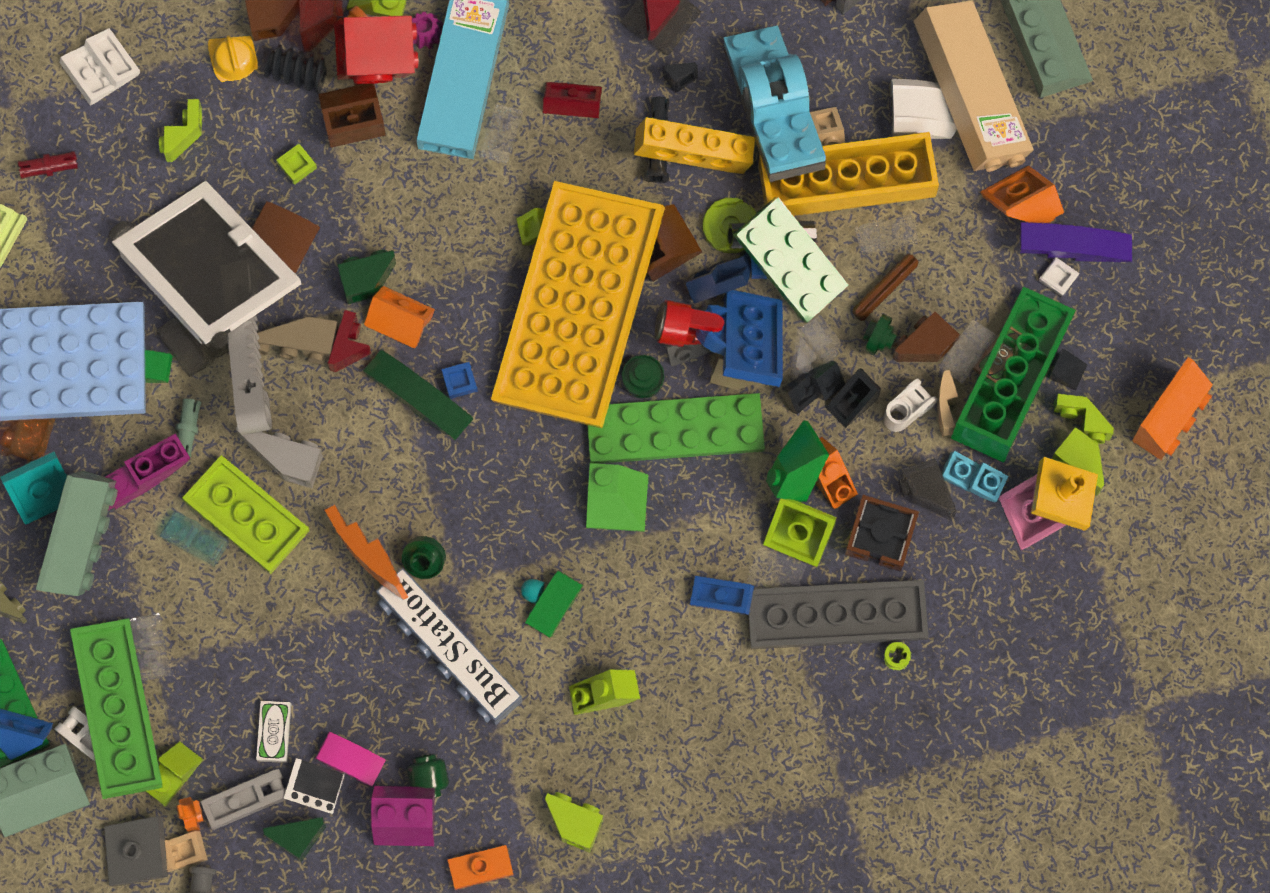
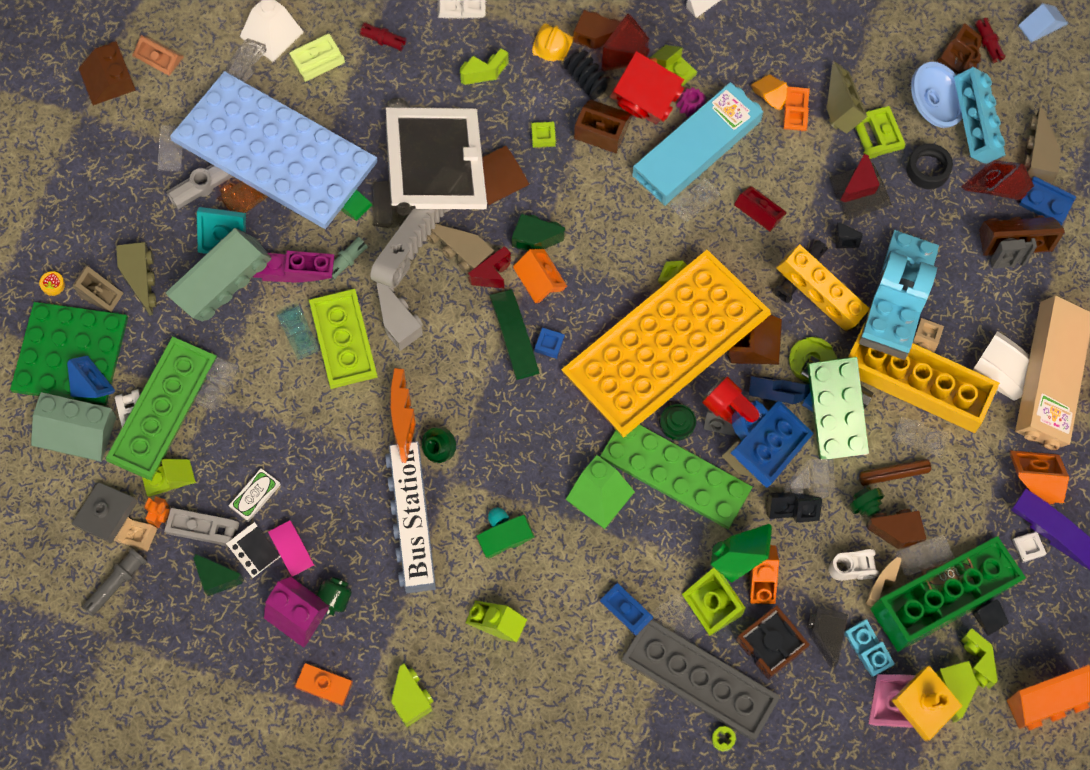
camera: 35 degrees right, 5 degrees down
(854, 398) = (818, 534): black slope -> none

